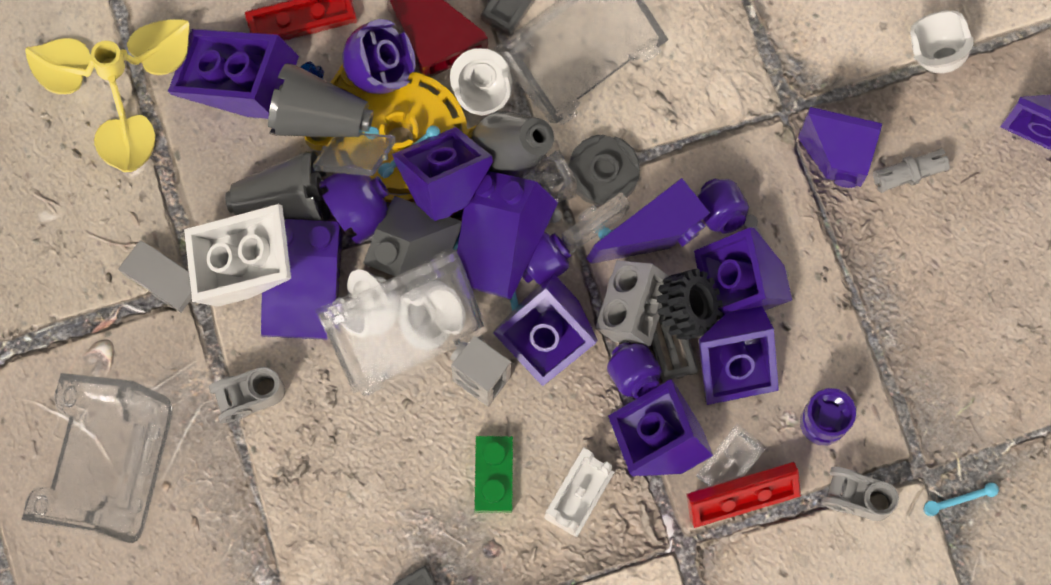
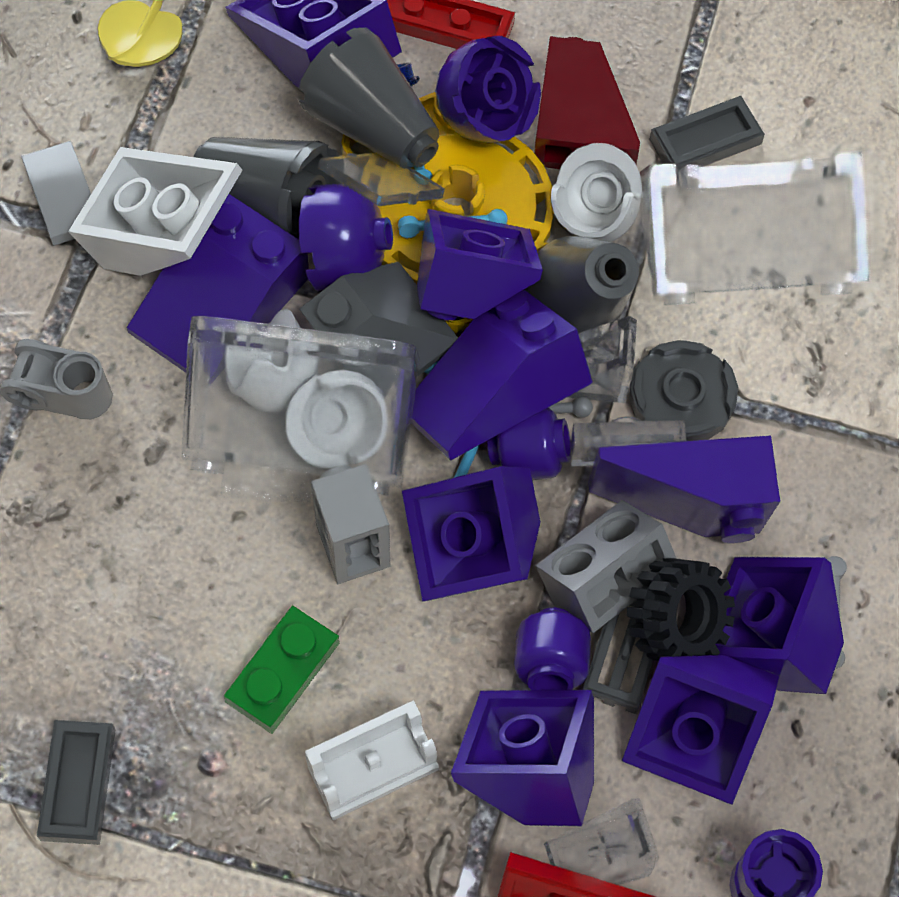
camera: 35 degrees right, 10 degrees down
(726, 205) = (809, 519): dark purple head -> none

